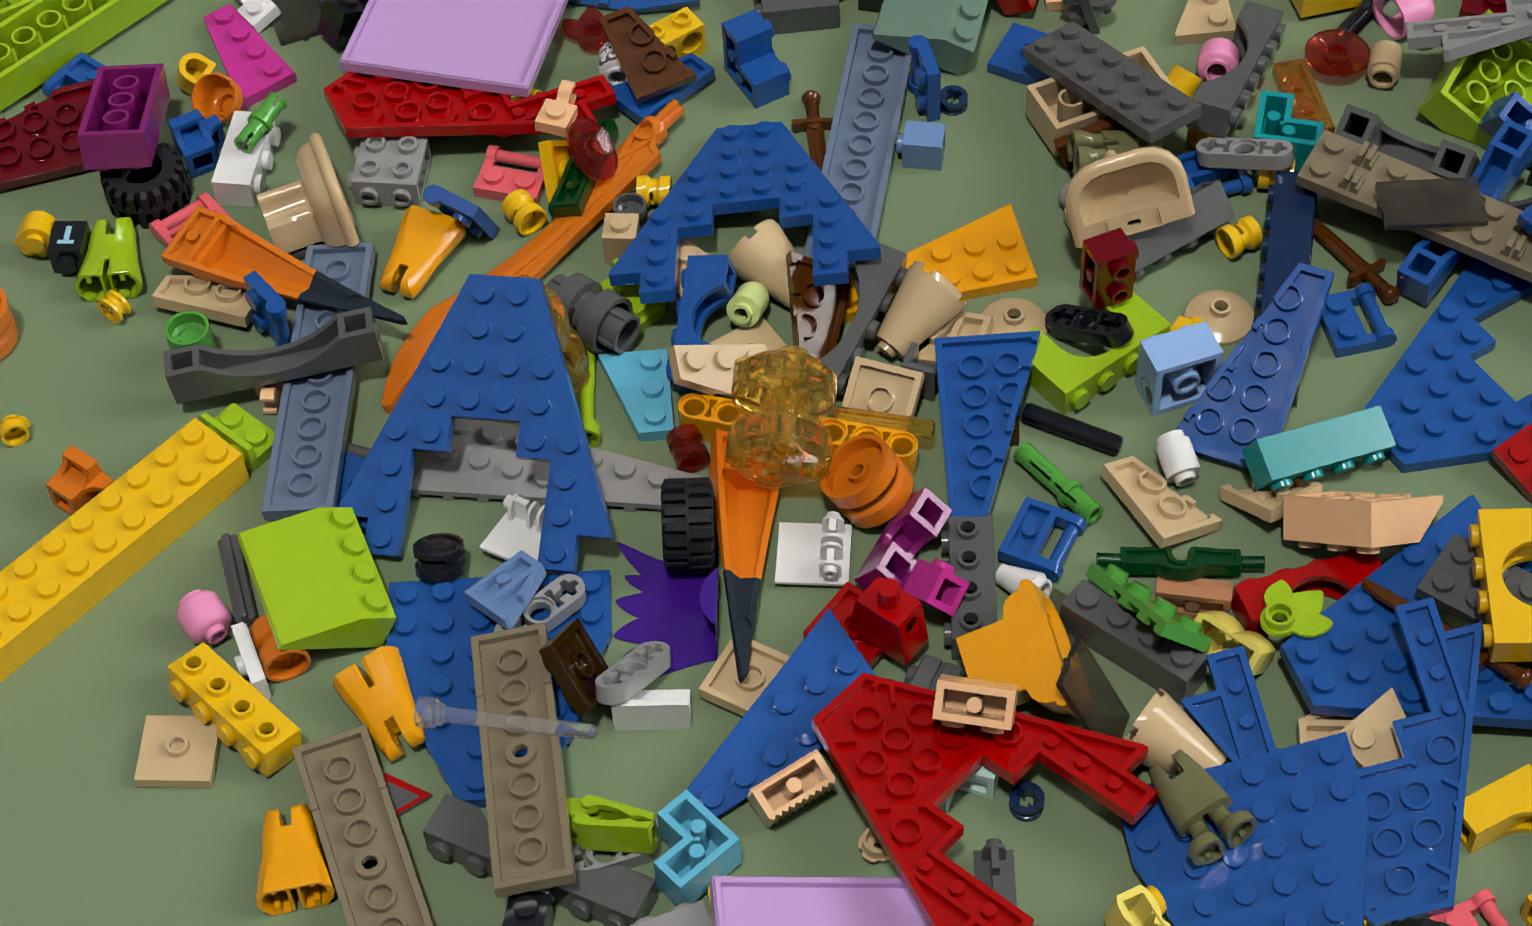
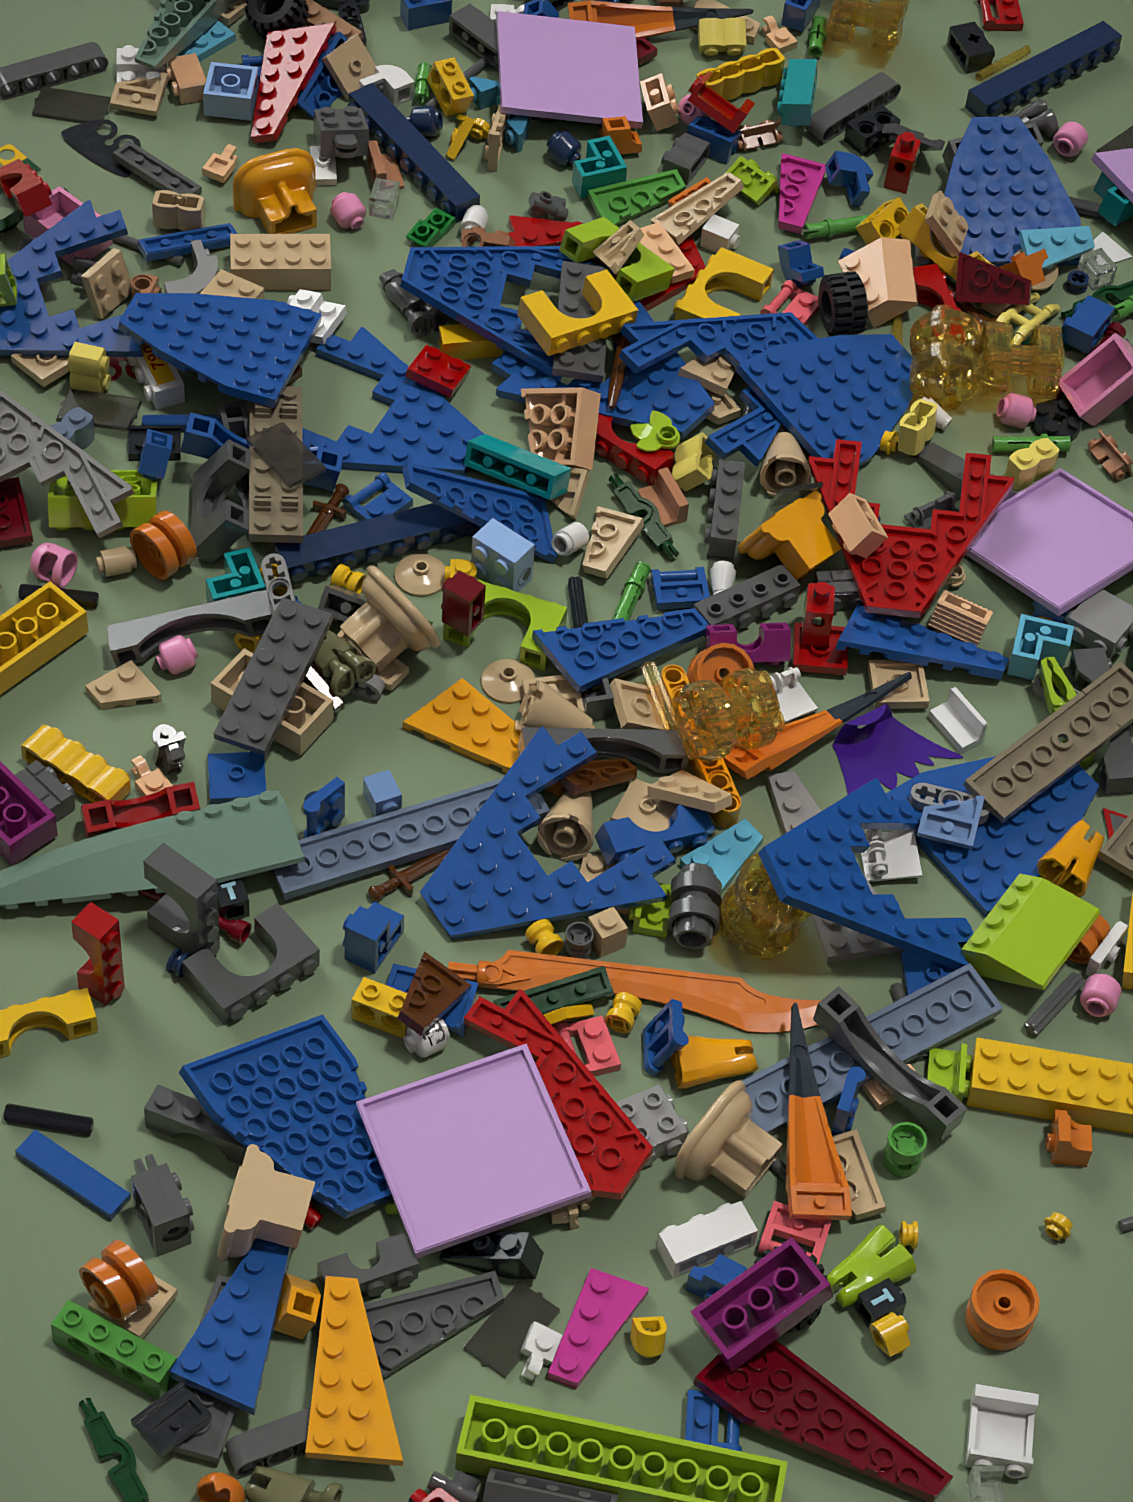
camera: 130 degrees left, 0 degrees up
(217, 96) = (663, 1295): orange hair -> none
(260, 122) = (683, 1221): bright green pin -> none
(431, 712) = (1074, 799): clear piece -> none
(439, 557) = (951, 886): black wheel -> none
(560, 113) = (536, 1009): light nougat plate -> none
(575, 665) = (986, 747): dark brown plate -> none
(586, 30) = (389, 1074): clear red plate -> none
(592, 149) = (551, 979): clear red dish -> none
(632, 673) = (961, 737): light grey beam -> none
(687, 445) = (758, 798): clear red wheel -> none
(687, 524) = (828, 750): black tyre -> none
(748, 304) = (614, 812): yellowish green brick -> none
(936, 585) = (775, 602): dark pink brick -> none
(1109, 329) = (505, 603): black beam -> none
(1156, 612) = (709, 496): bright green wing -> none
(1184, 80) = (215, 661): yellow plate -> none
(1191, 797) = (833, 418): olive piece -> none
(1297, 79) = (182, 594): clear orange plate -> none
(1337, 53) = (123, 590): clear red dish -> none
(1374, 82) = (163, 545): none -> orange wheel

